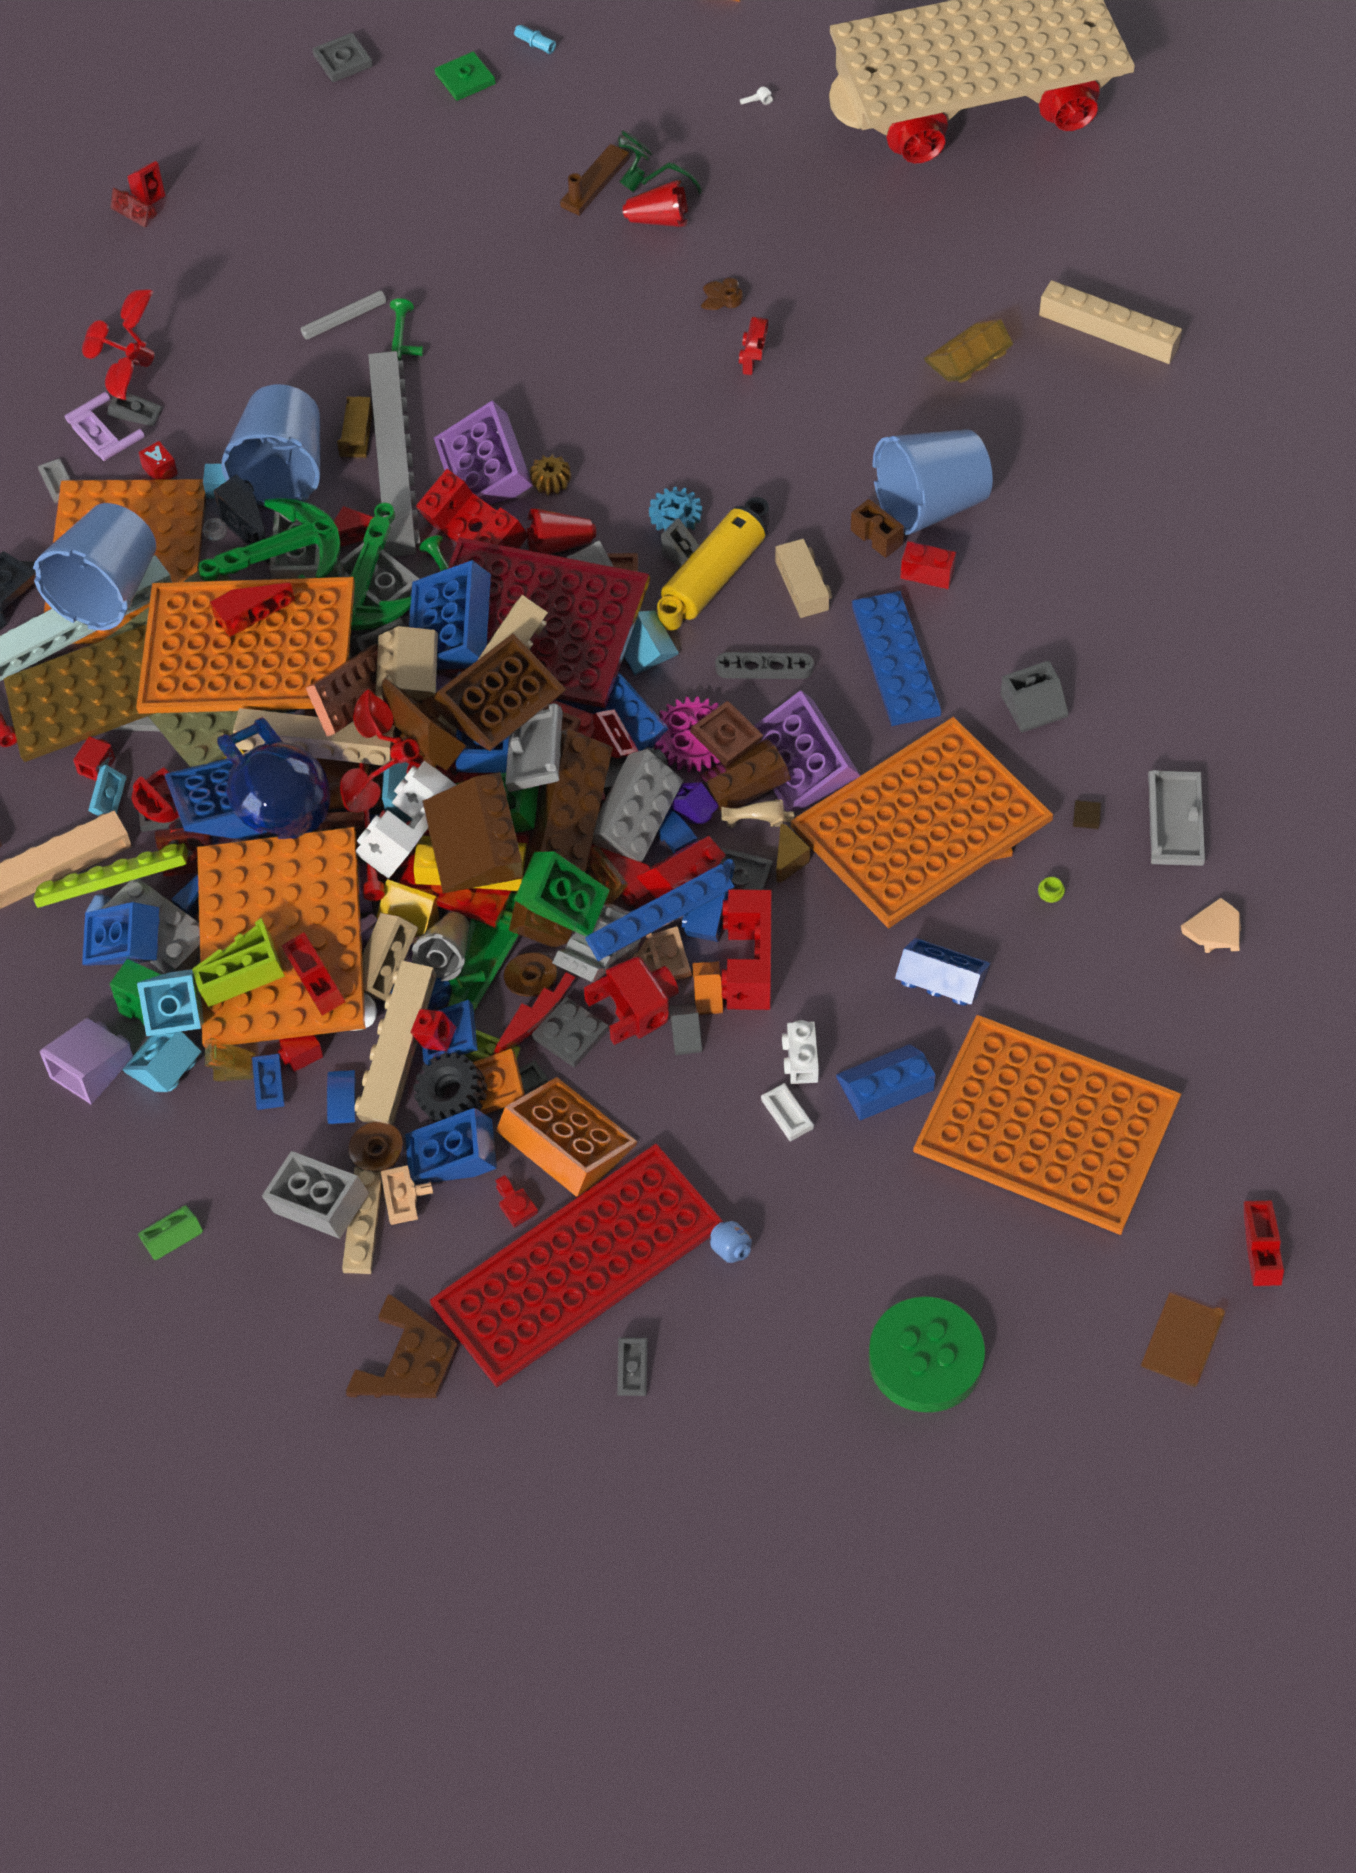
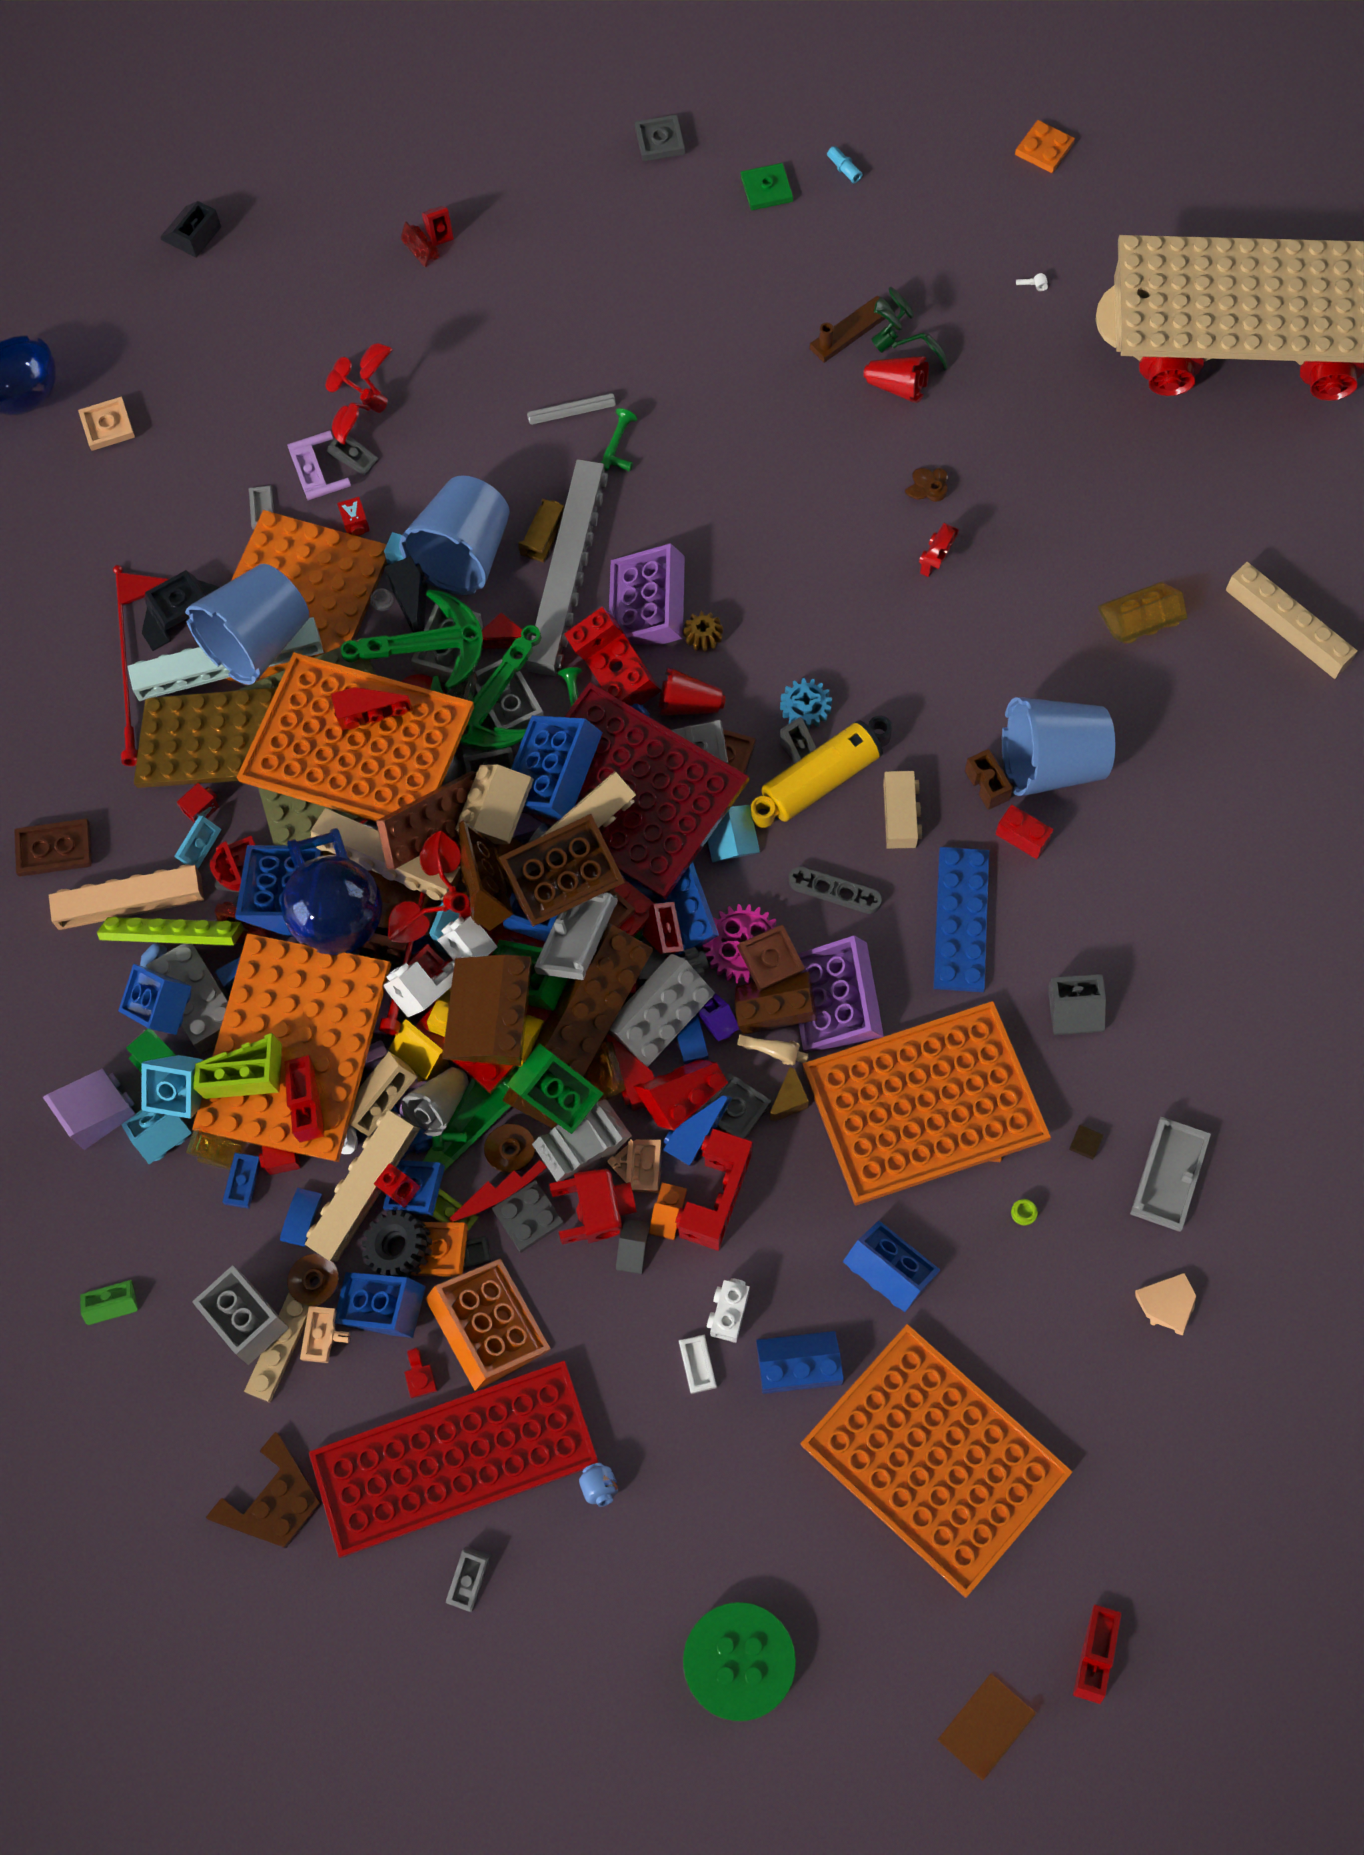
camera: 20 degrees right, 10 degrees up
(659, 912) = (640, 1133): blue plate -> none

